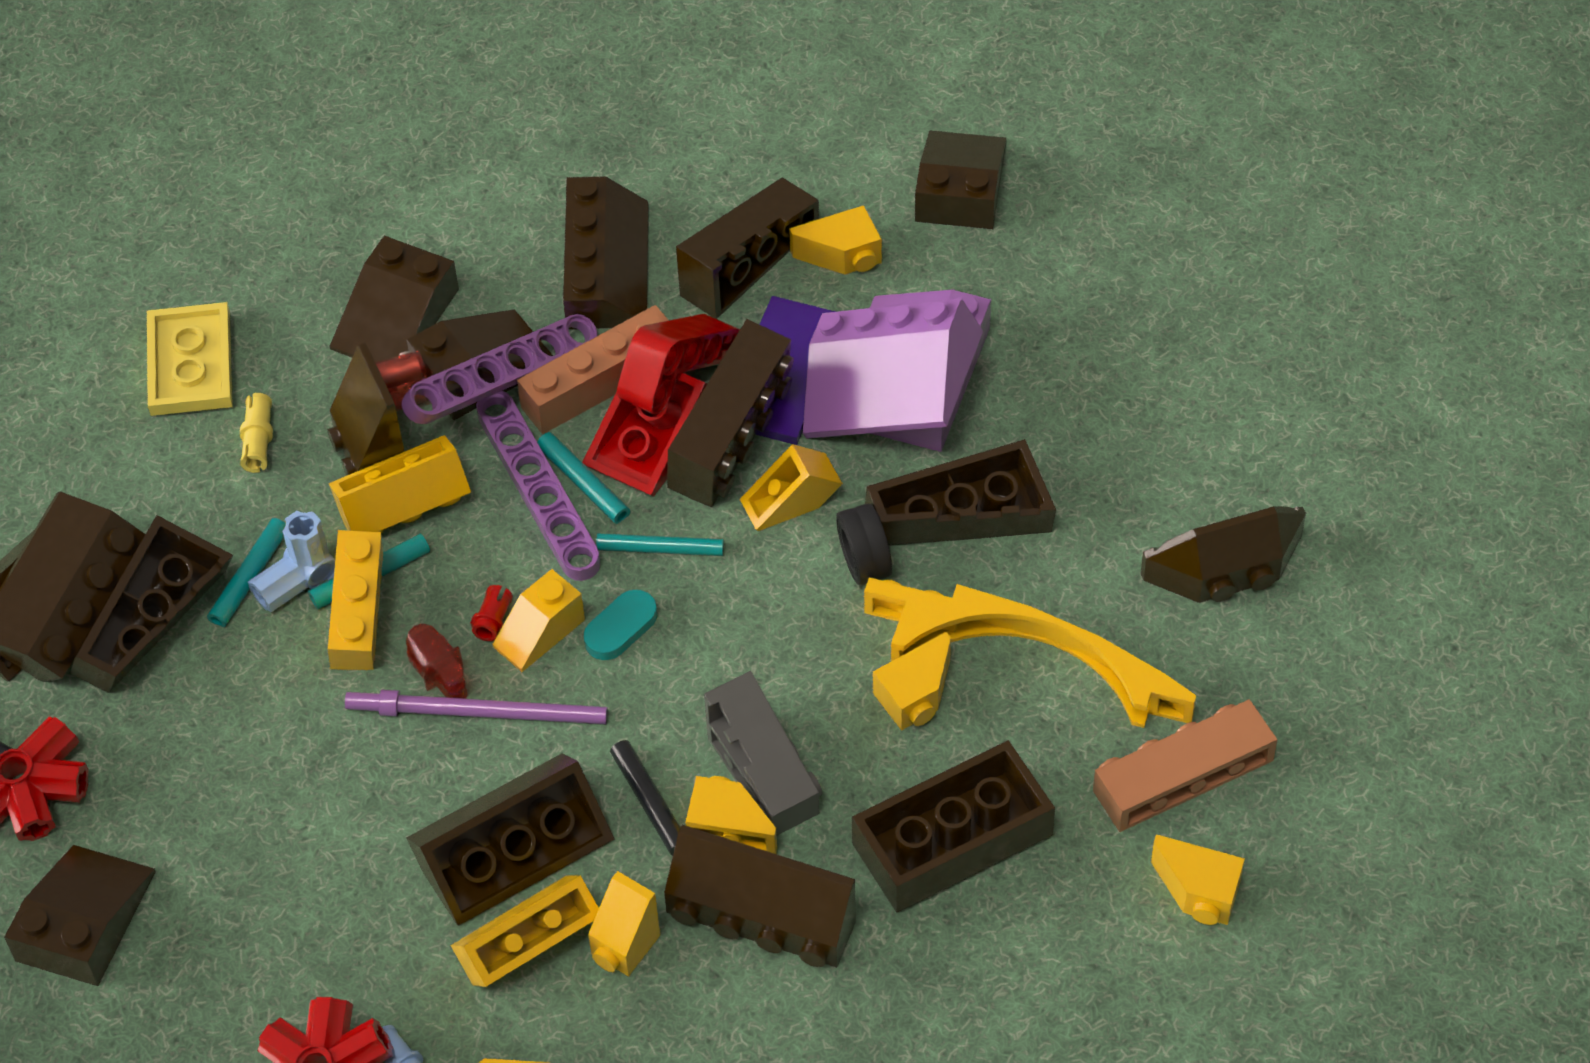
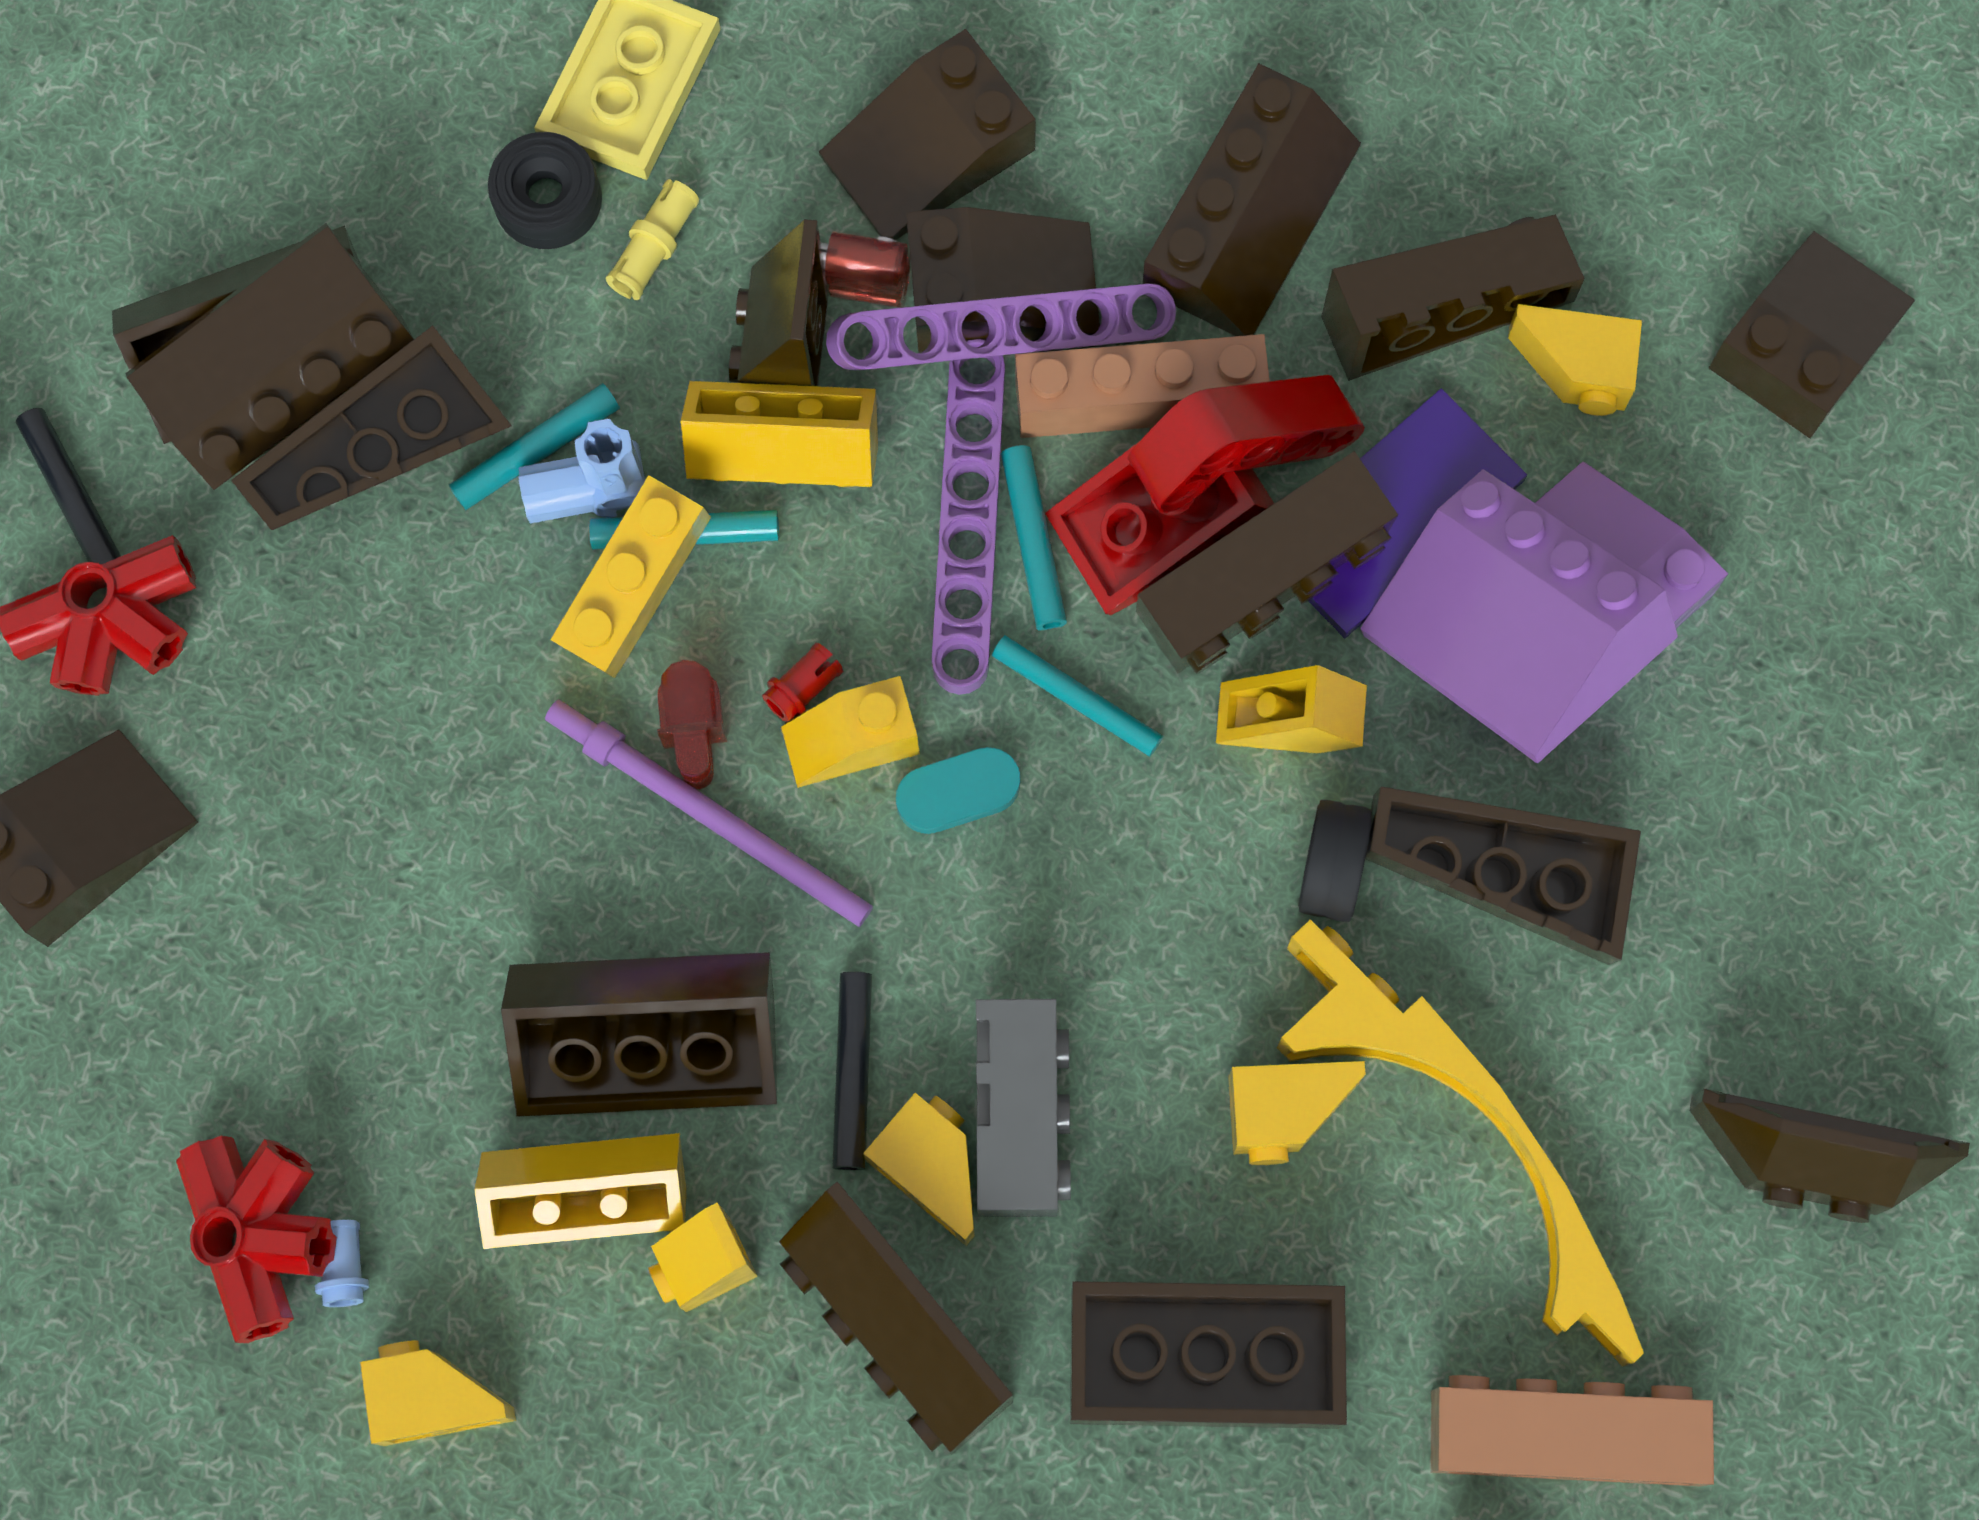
camera: 30 degrees right, 20 degrees up
(169, 417) = (537, 158): none -> black tyre

